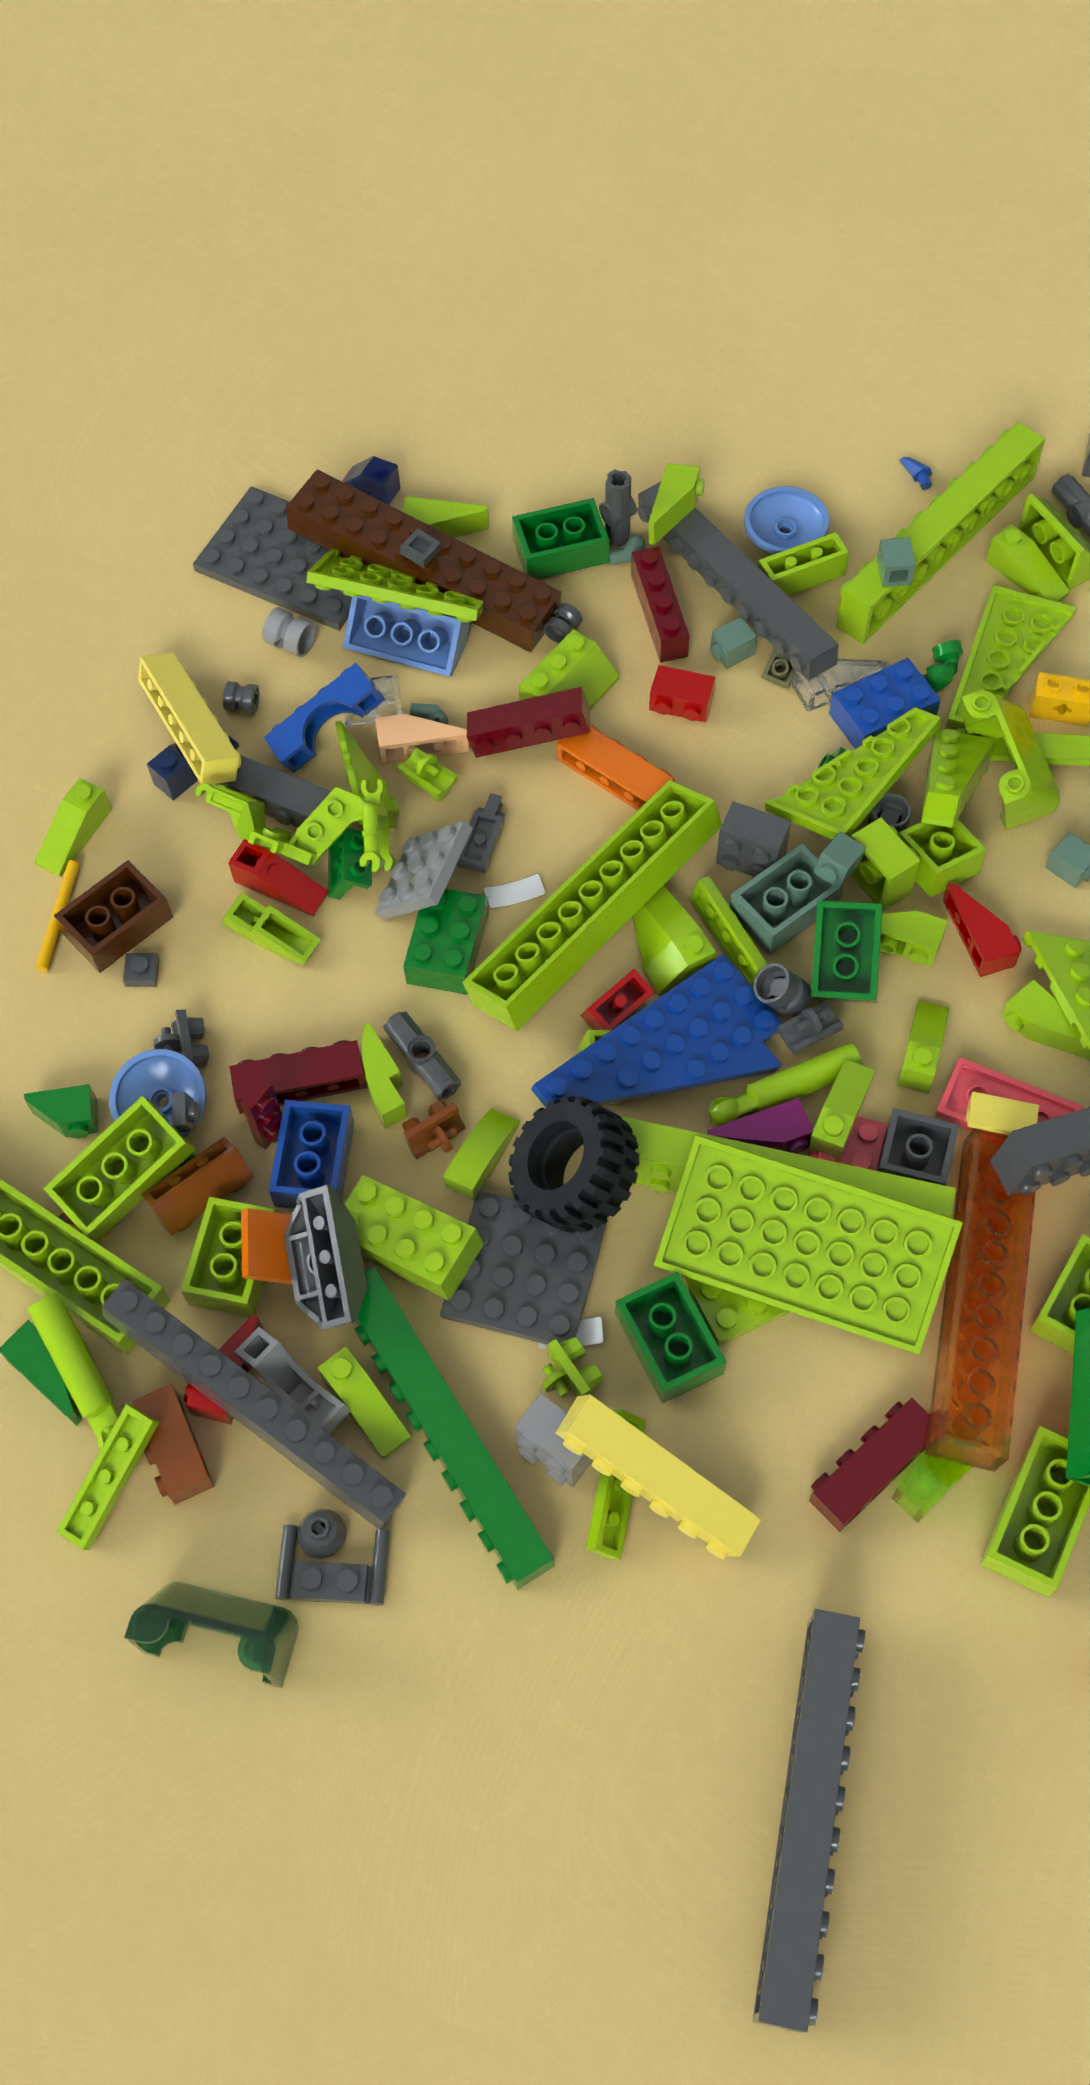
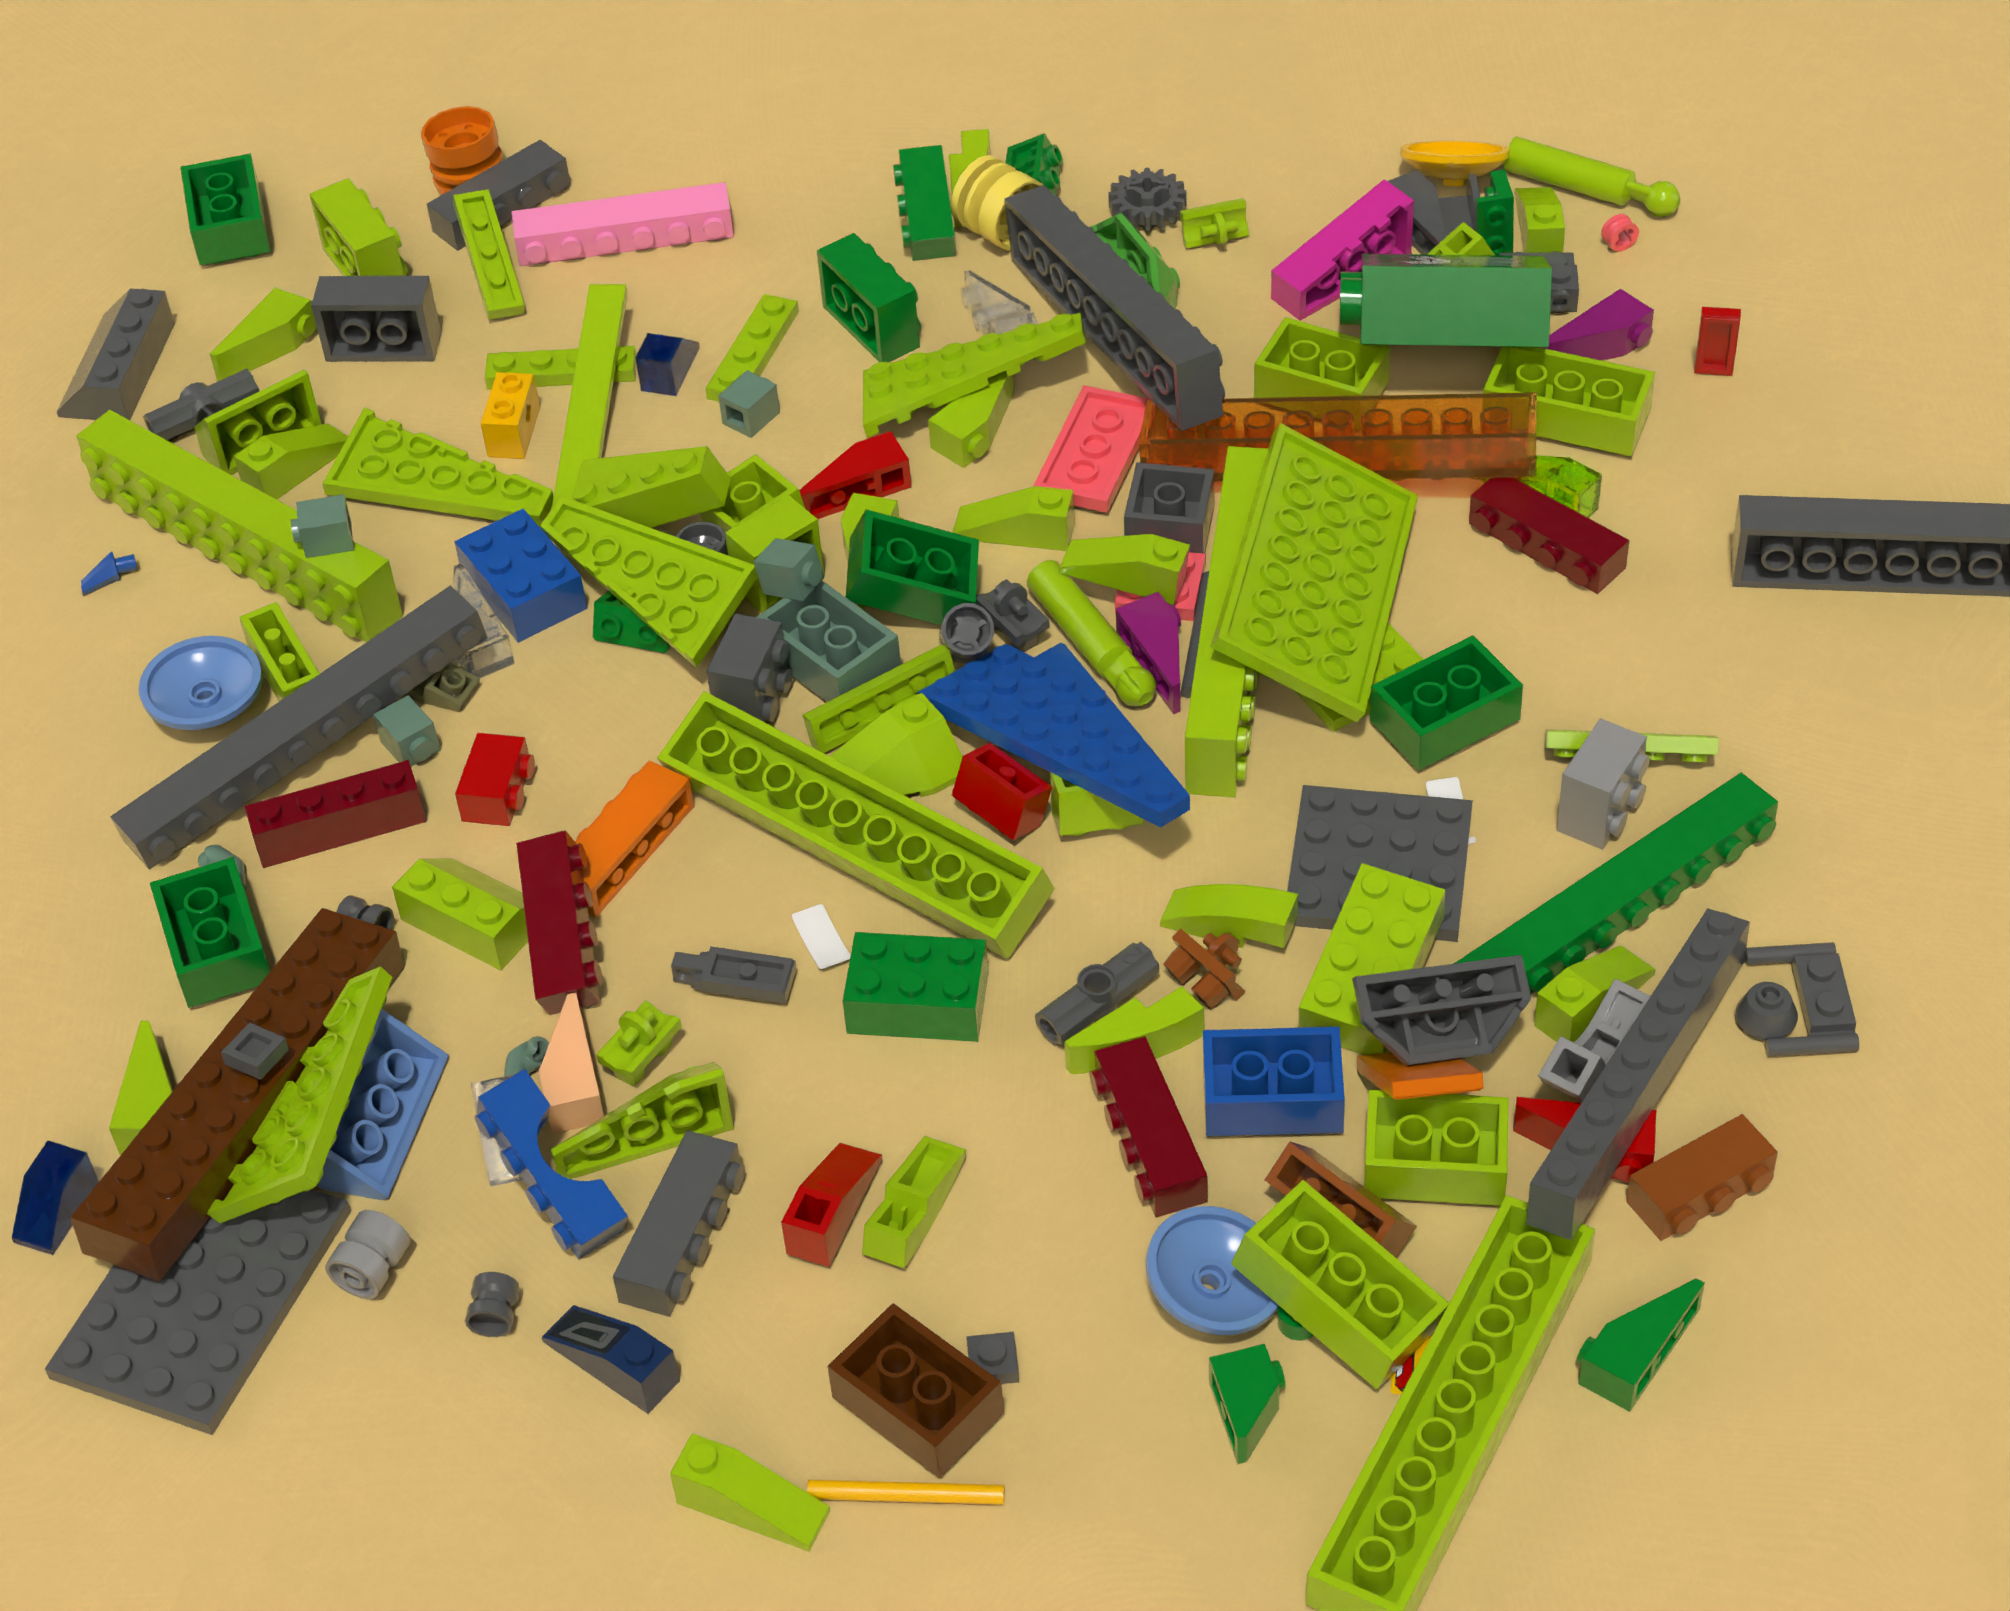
camera: 95 degrees left, 15 degrees down
(75, 1364) = (1640, 1278): lime piece -> none
(107, 1477) = (1771, 1224): lime plate -> none
(183, 1031) = (1110, 1272): dark grey hips -> none
(184, 1112) = (1241, 1212): dark grey plate -> none
(188, 719) = (550, 1342): light yellow brick -> none
(263, 1113) = (1233, 1119): dark red plate -> none
(264, 1629) = (1917, 1113): clear green windscreen -> none
(318, 830) = (762, 1131): lime piece -> none
(344, 864) = (797, 1117): green bracket -> none
(423, 870) = (819, 1005): light grey plate -> none
(563, 1357) = (1508, 800): lime hips -> none
(601, 1178) = (1322, 756): black tyre -> none
(617, 507) = (172, 835): dark grey piece -> none
(658, 1477) = (1628, 674): light yellow brick -> none
(674, 499) = (161, 782): lime slope -> none
(948, 655) = (434, 522): green arm -> none
(999, 1113) = (1121, 429): light yellow panel -> none
(1030, 788) = (614, 430): lime windscreen -> none

